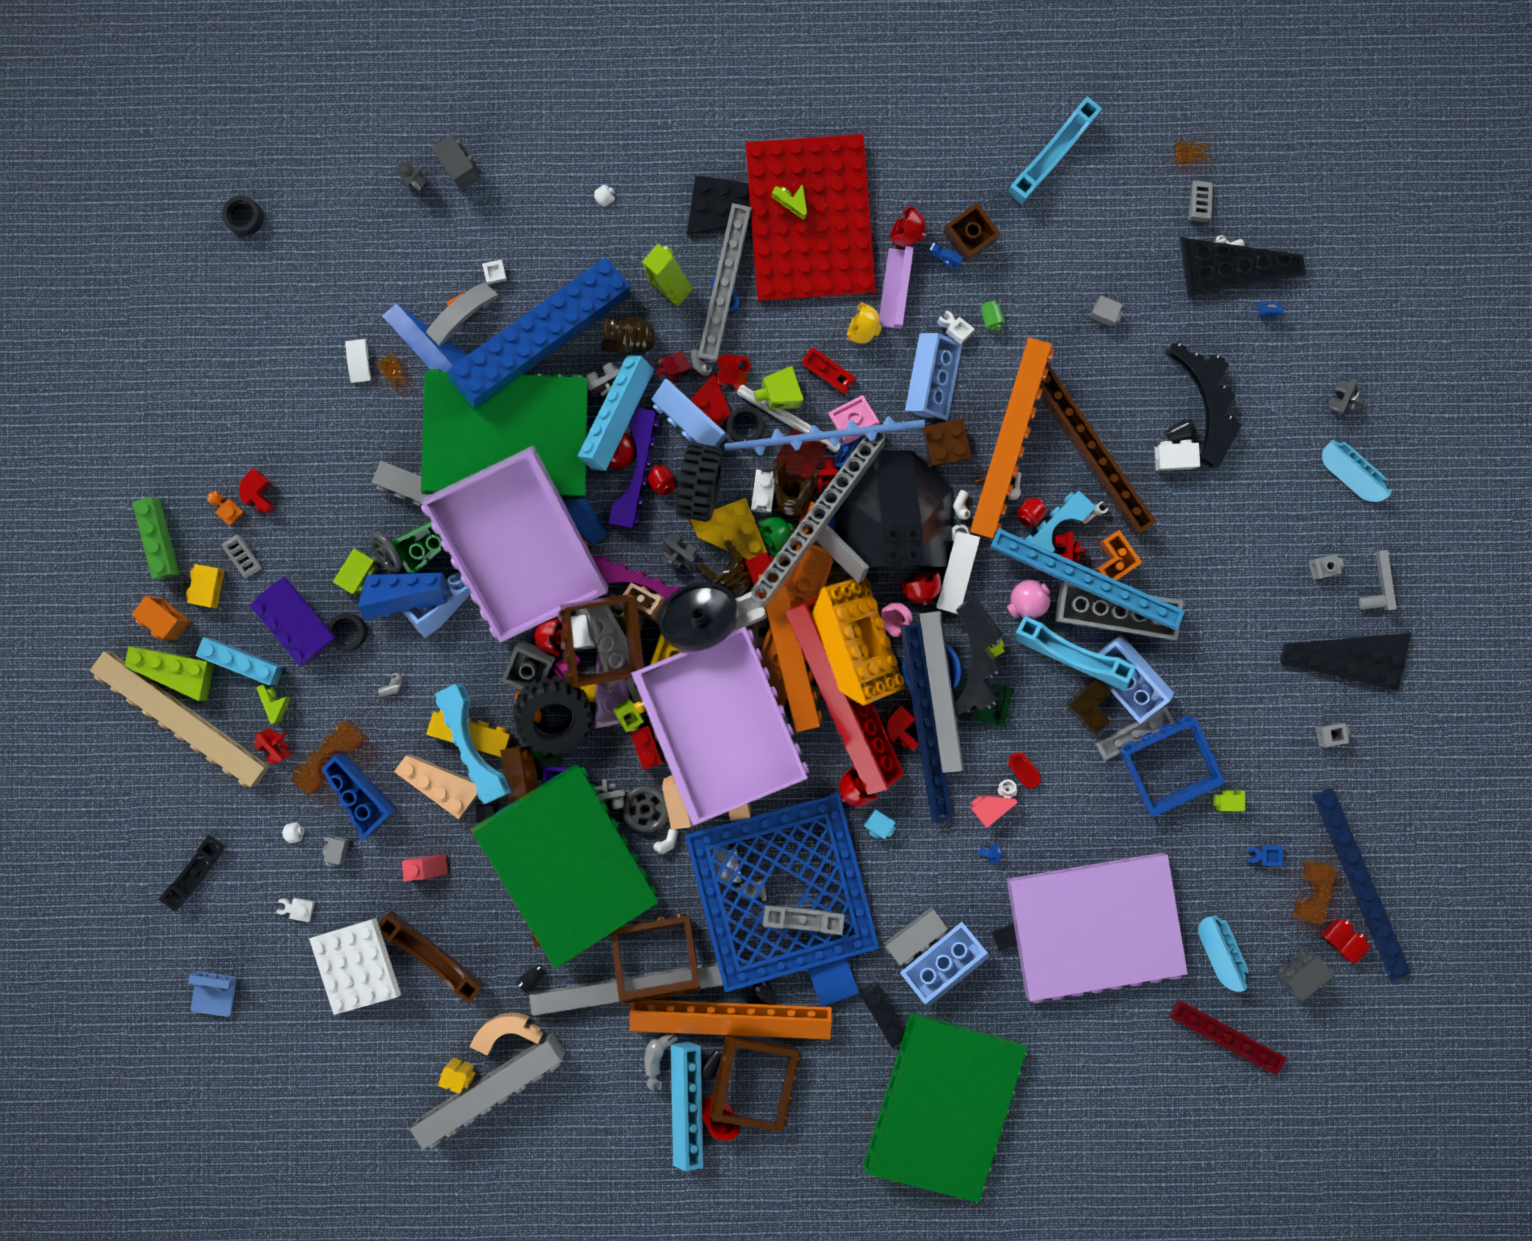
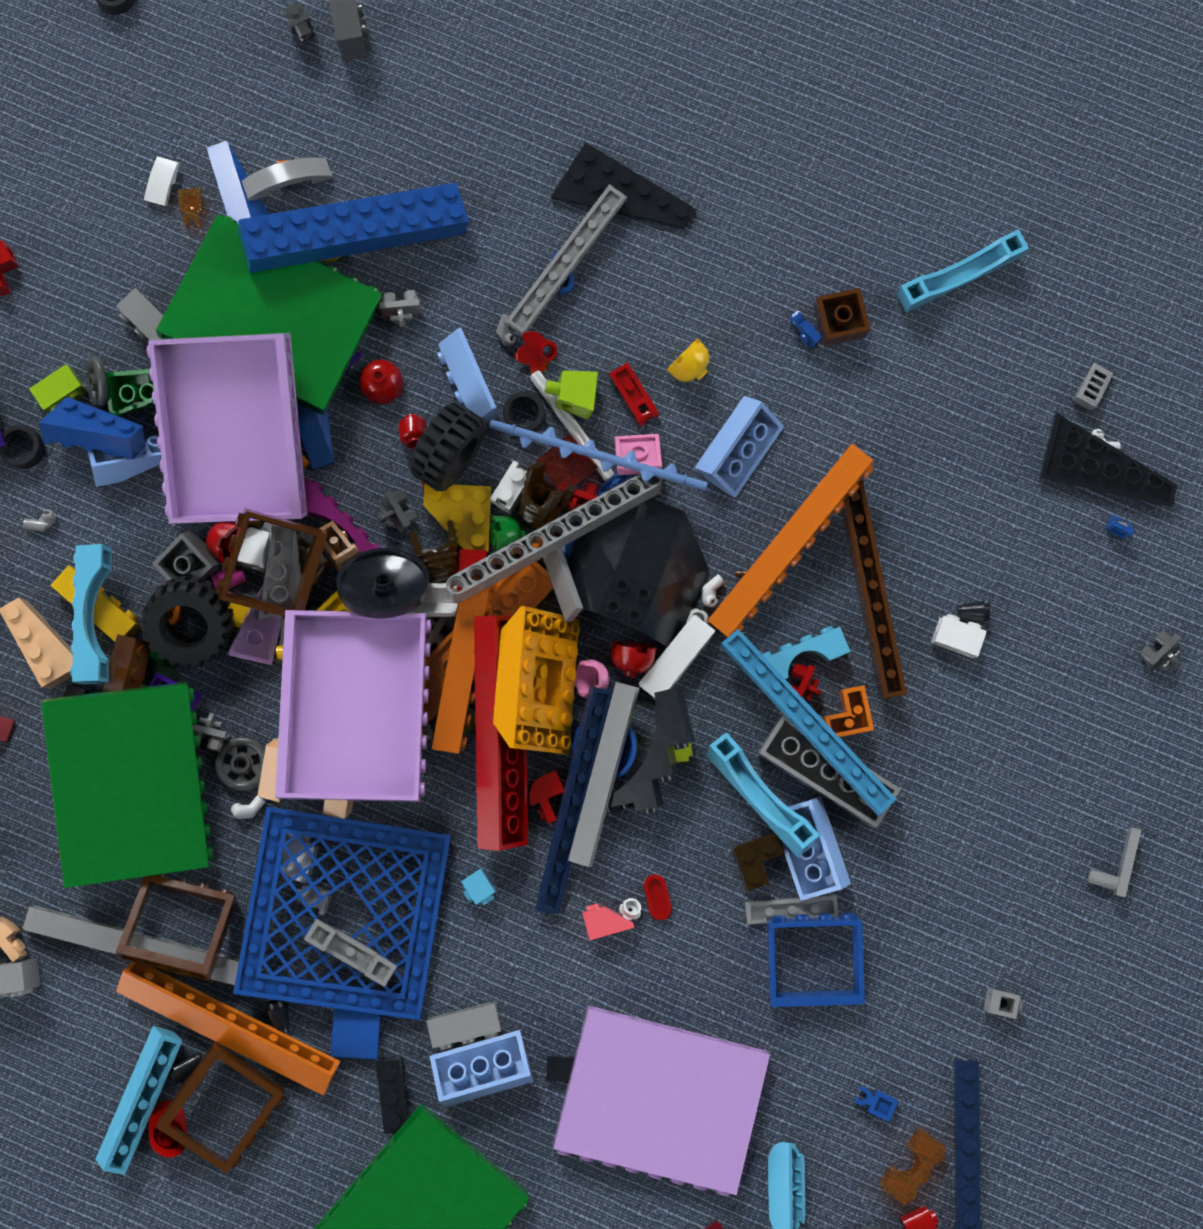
camera: 15 degrees right, 5 degrees down
(494, 272) = (339, 152): white plate -> none
(530, 979) = (39, 890): black cone -> none
(604, 195) = (485, 124): white piece -> none
(616, 412) = (394, 341): medium azure brick -> none
(625, 707) = (260, 648): lime brick -> none
(626, 507) = (363, 444): dark purple arch -> none
(632, 334) = (448, 270): dark brown hair -> none
(646, 747) = (269, 698): red brick -> none
(653, 1054) = (128, 1030): light grey arm -> none
(666, 274) = (508, 223): lime wedge -> none
(673, 367) = (476, 323): dark red piece -> none
(712, 402) = (500, 375): red wing -> none
(795, 204) = (671, 209): lime slope -> none
(833, 244) = (683, 233): red plate -> none
(853, 791) = (465, 839): red cylinder -> none
(895, 287) = (740, 340): lavender panel -> none
(909, 228) = (779, 286): red cylinder -> none
(946, 443) = (723, 519): reddish brown brick -> none
(957, 329) = (784, 408): white plate -> none
(987, 715) = (643, 820): dark green plate -> none
(992, 316) = (827, 410): bright green brick -> none
(994, 853) = (585, 971): blue plate -> none
(1016, 490) = (773, 601): white hand -> none
(1029, 599) = (739, 718): bright pink brick -> none
(1031, 512) = (781, 629): red head -> none
(1097, 511) = (850, 658): white hand -> none
(1106, 311) = (948, 456): light grey brick -> none
(1188, 152) = (1100, 331): clear orange plate -> none
(1216, 400) = (1024, 566): black arch -> none
(1229, 801) = (861, 1026): lime brick -> none
(1319, 566) = (1061, 818): light grey brick -> none
(1355, 471) = (1140, 733): medium azure brick -> none
(1360, 659) = (1069, 937): black wing -> none

